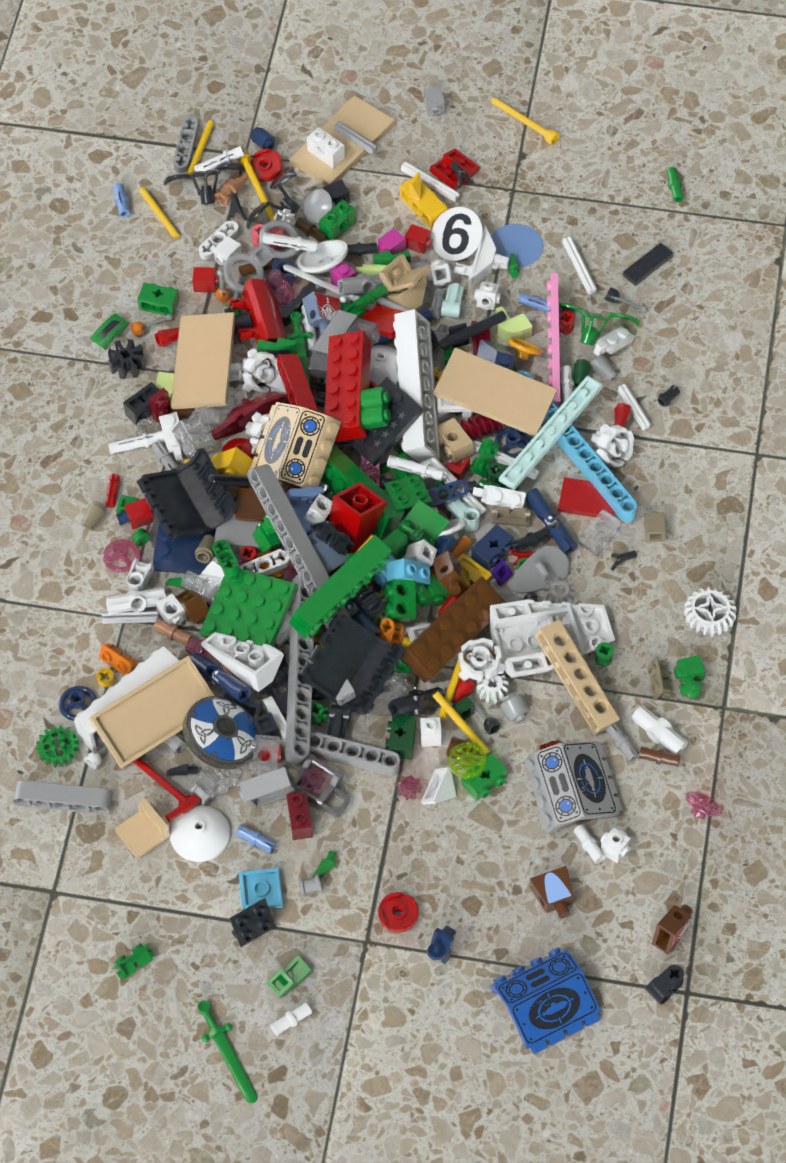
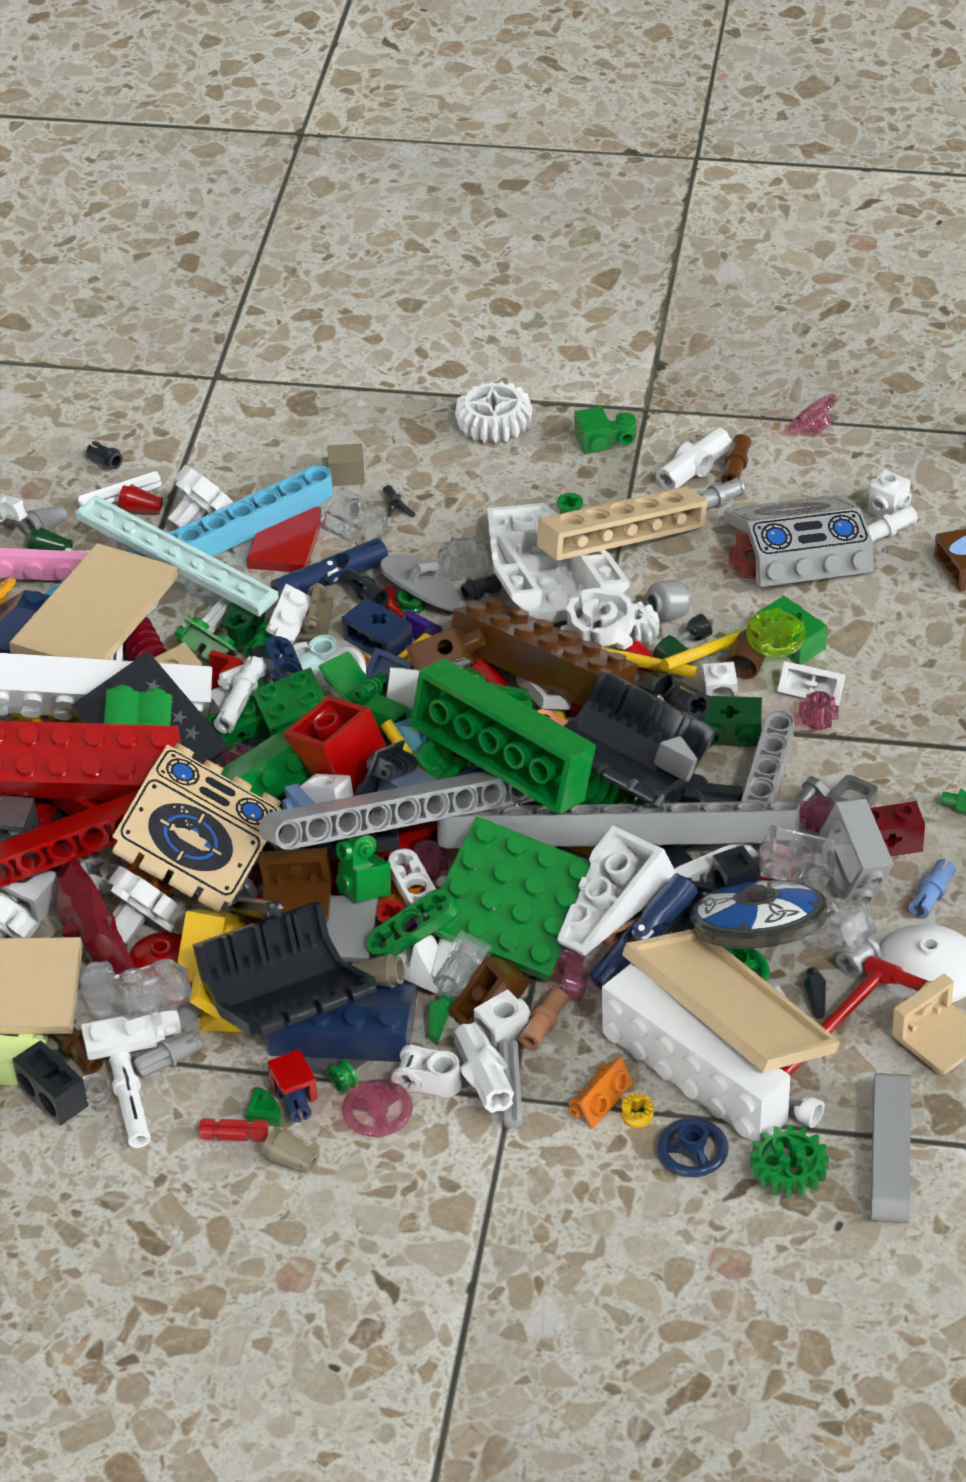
camera: 90 degrees left, 15 degrees down
(160, 404) = (61, 1042): dark red plate -> none
(512, 440) = (171, 616): dark blue piece -> none
(658, 671) = (607, 462): dark tan hinge -> none

